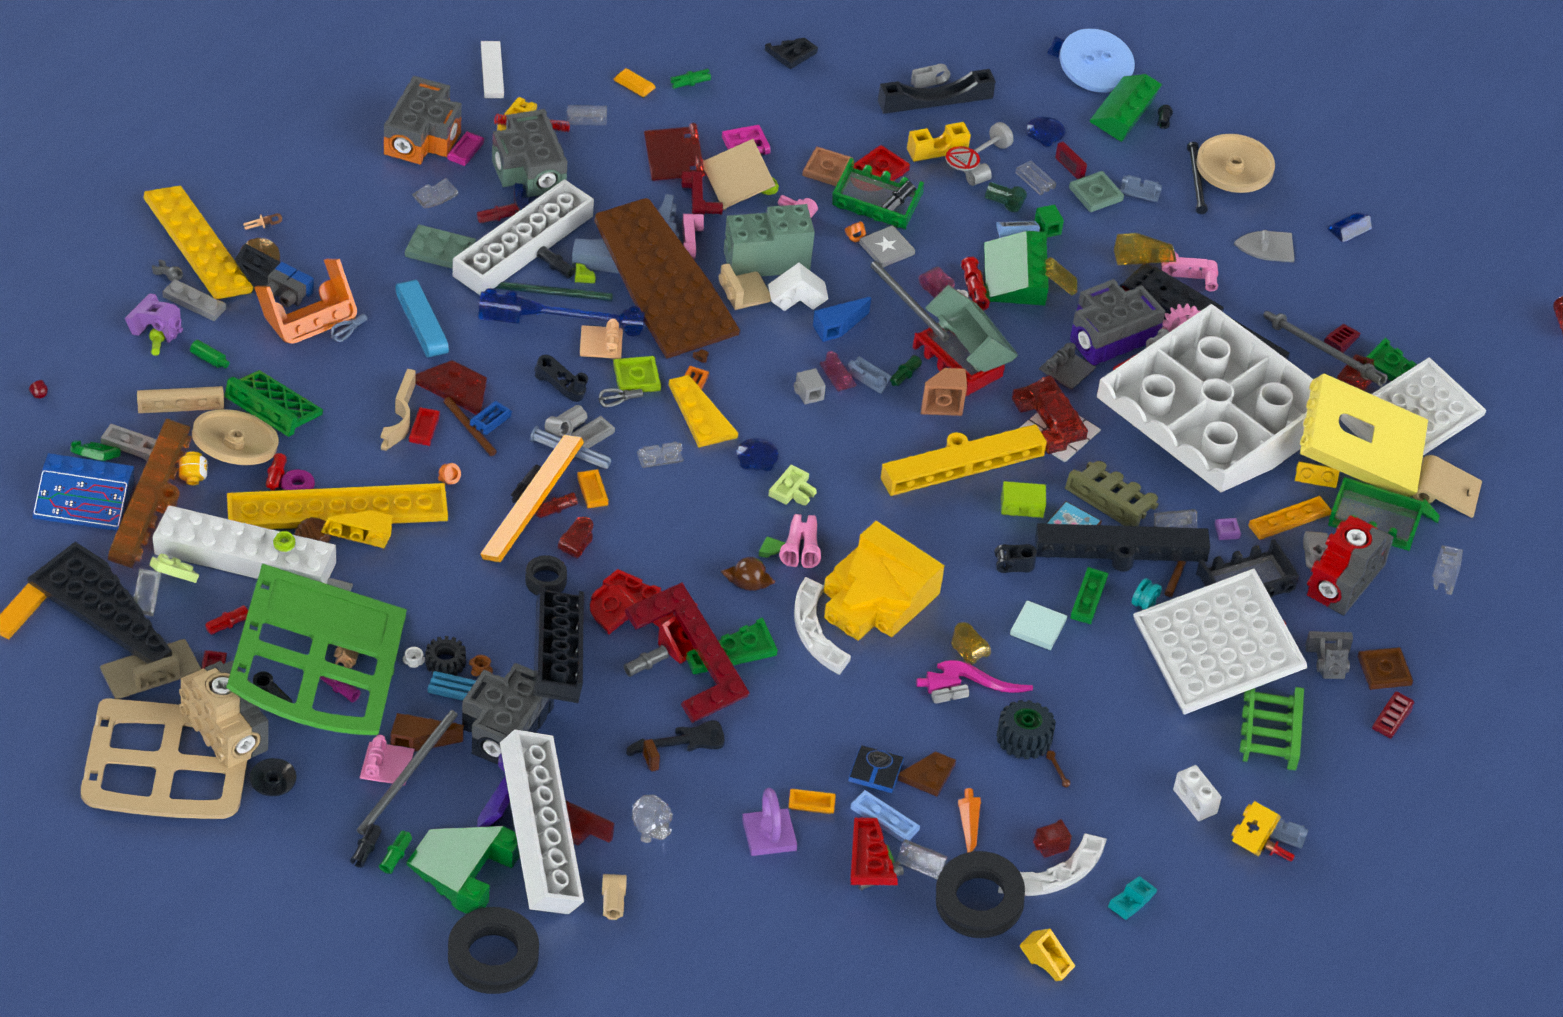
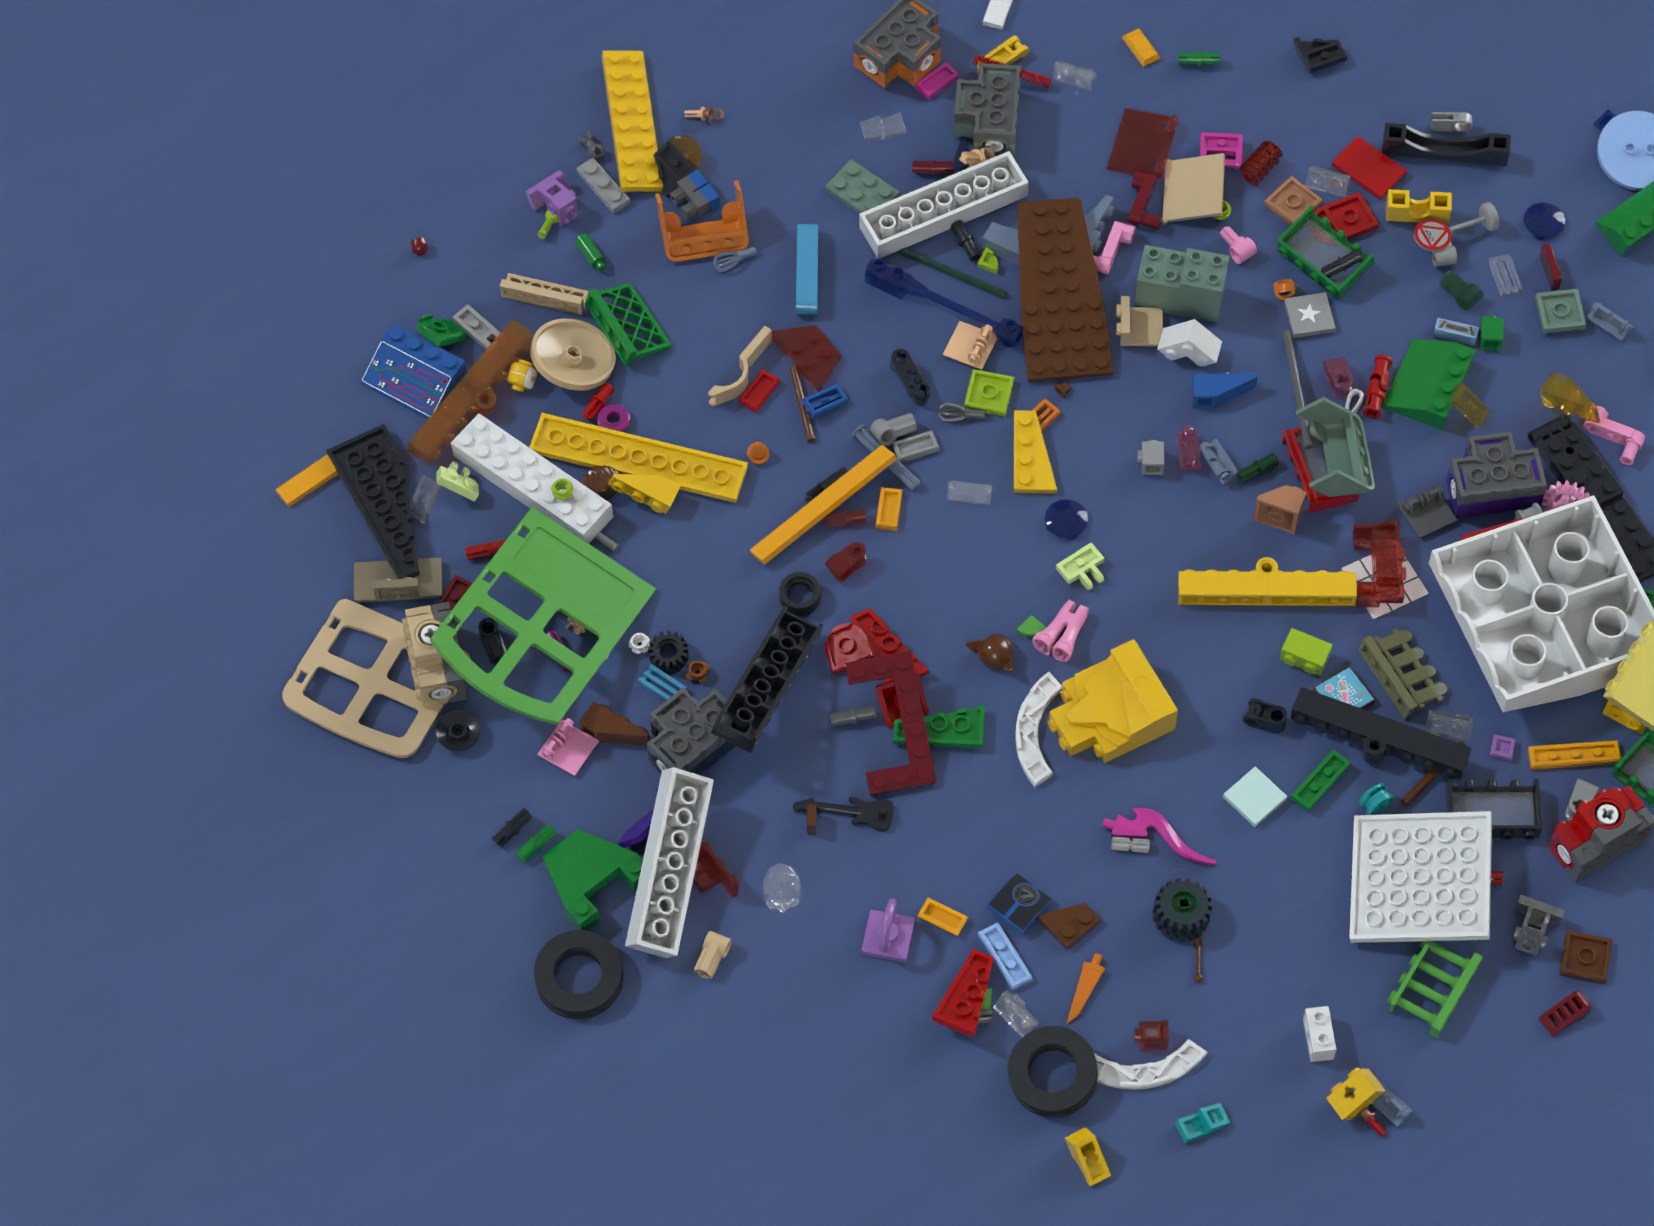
camera: 30 degrees right, 15 degrees up
(407, 772) = (581, 763): dark grey piece -> none
(535, 191) = (977, 156): none -> light nougat axle
(786, 141) = (1260, 162): none -> clear red piece
(850, 142) = (1327, 181): none -> clear hinge
(878, 126) = (1369, 167): none -> red tile
(969, 643) = (1174, 801): clear yellow piece -> none

